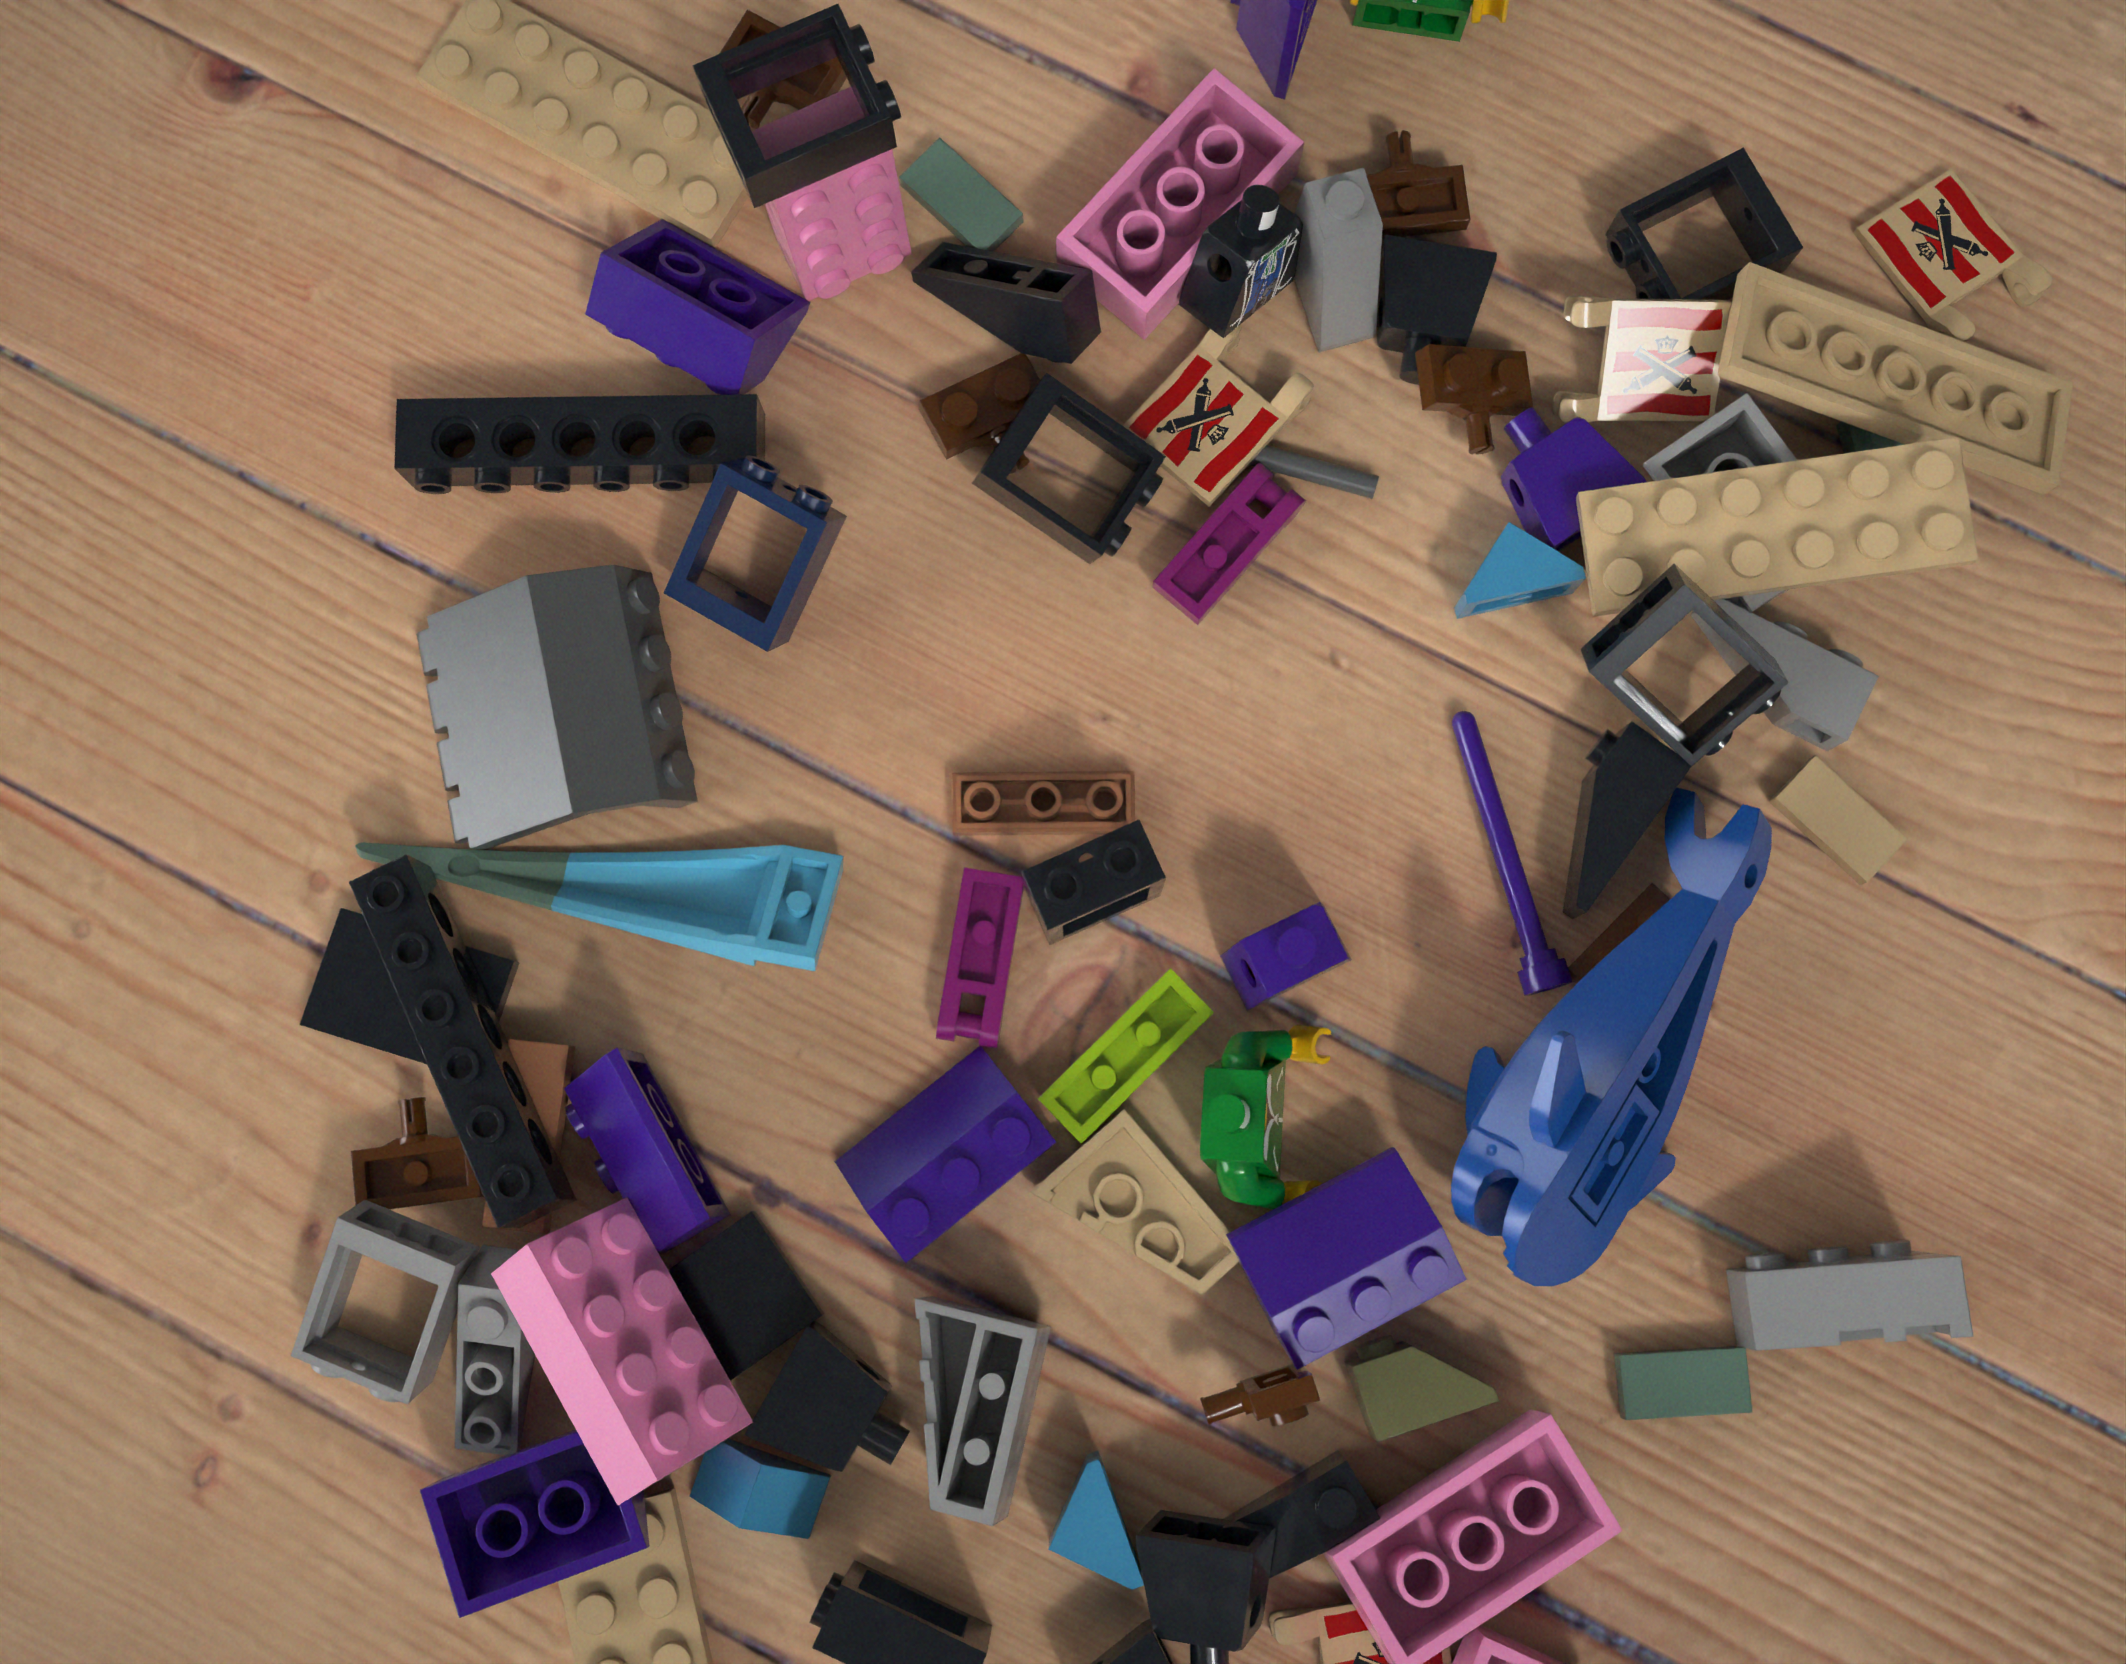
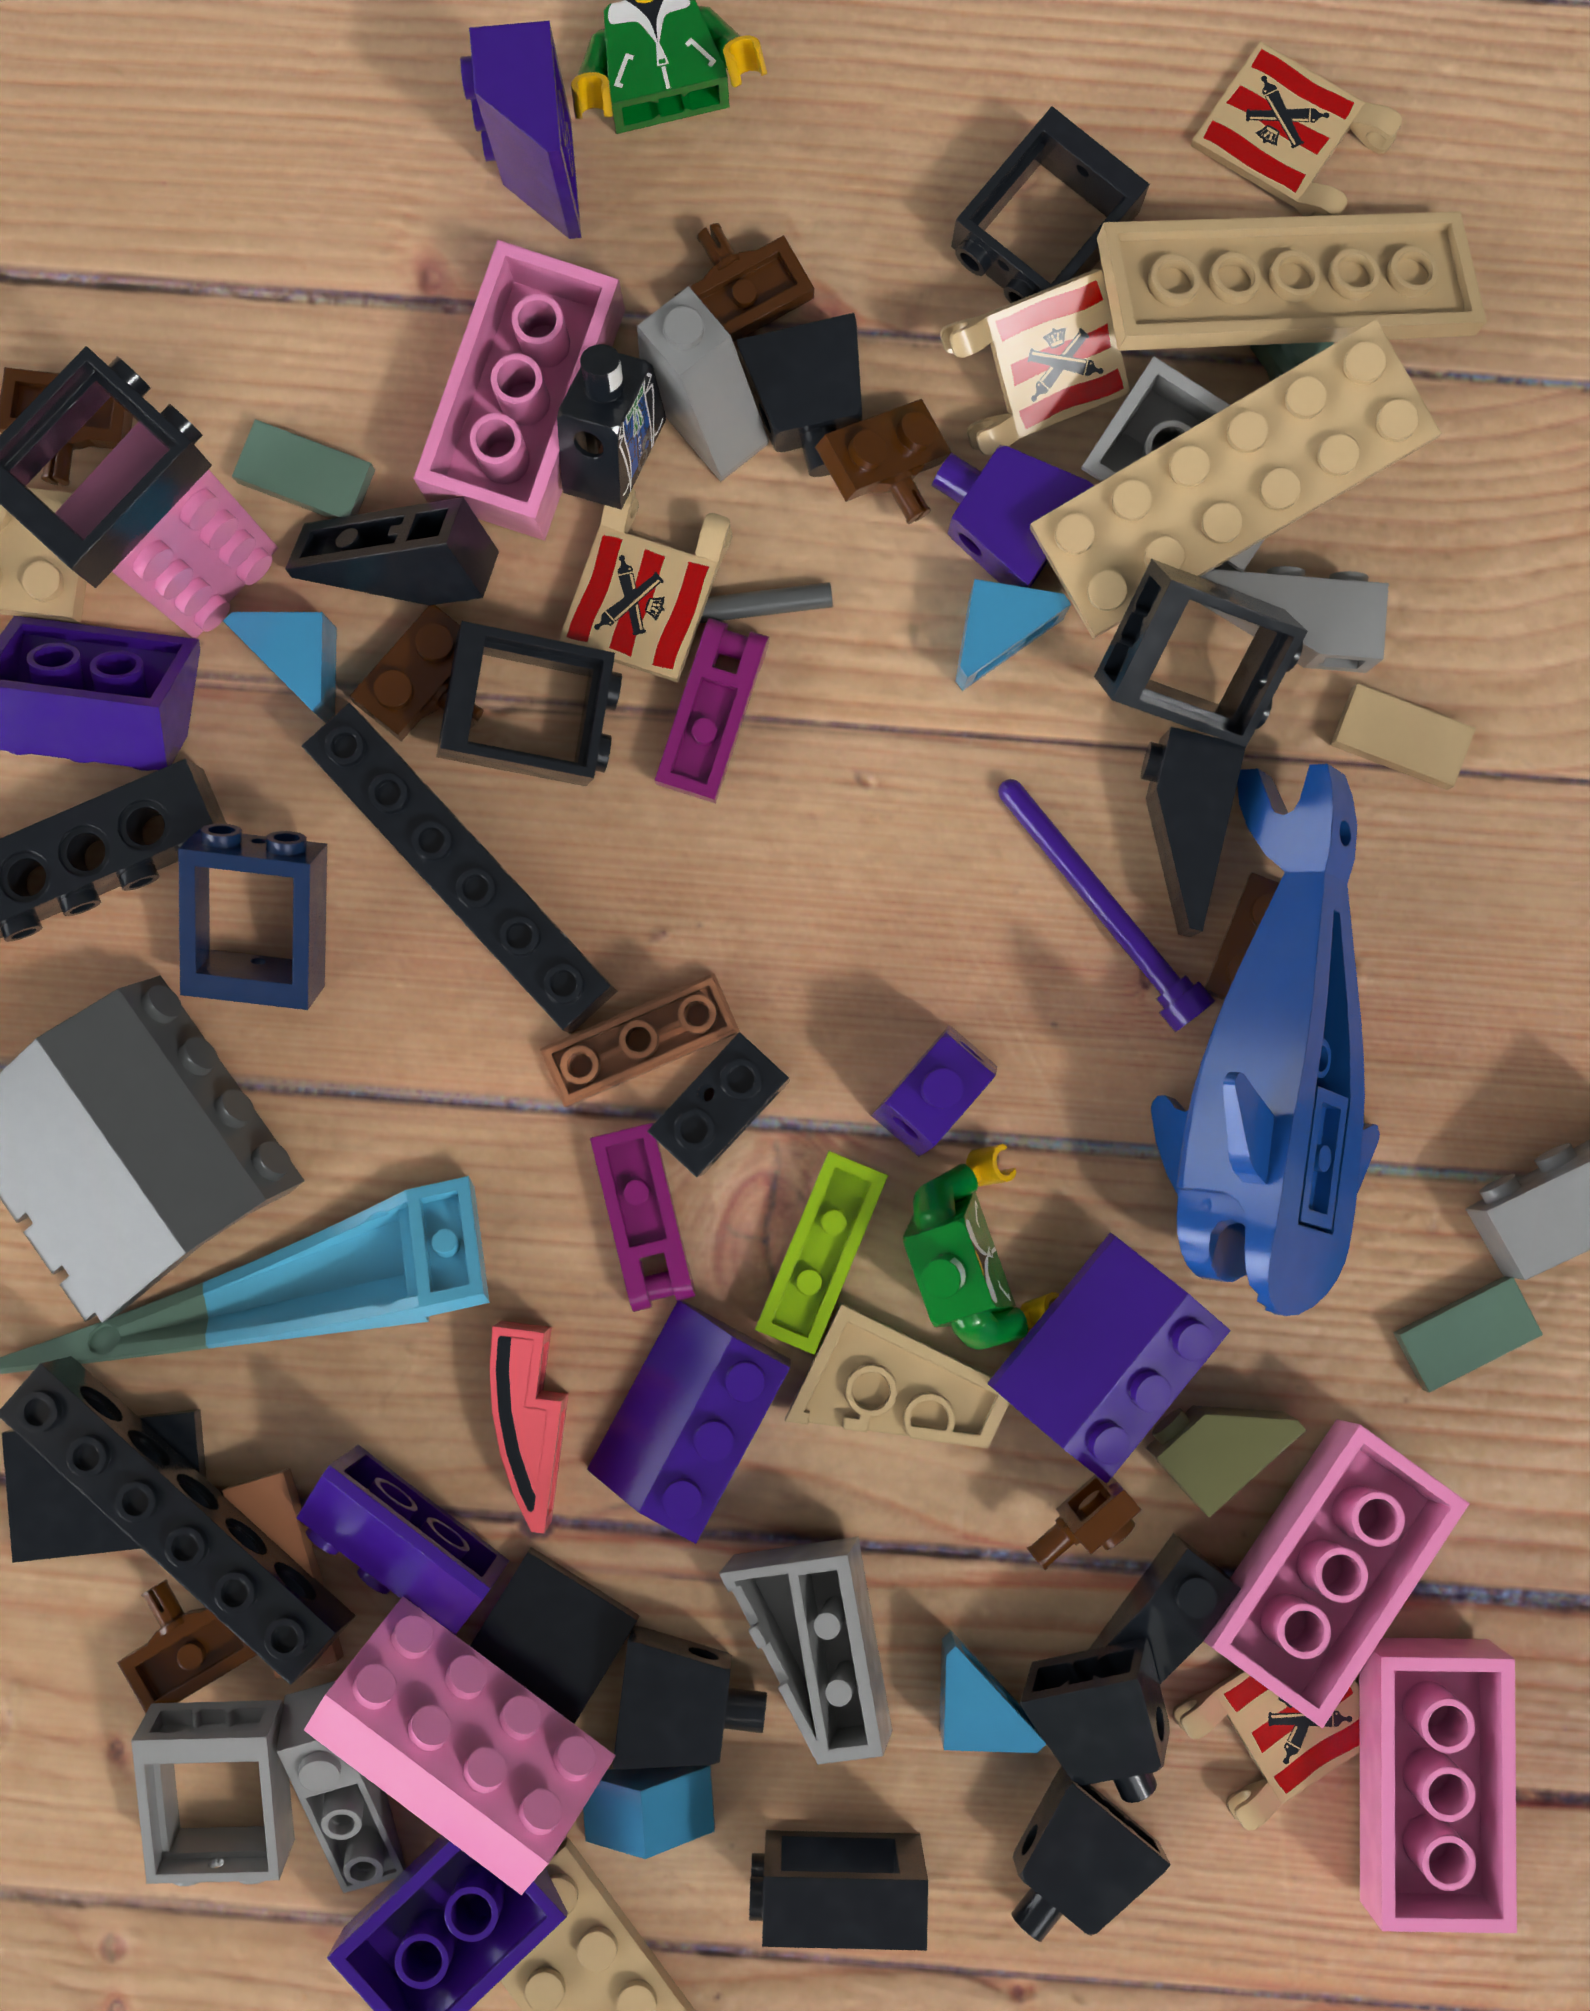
camera: 25 degrees left, 5 degrees up
(801, 1091) = (527, 1417): none -> coral slope
(890, 343) = (297, 649): none -> dark azure slope
(952, 588) = (459, 869): none -> black brick

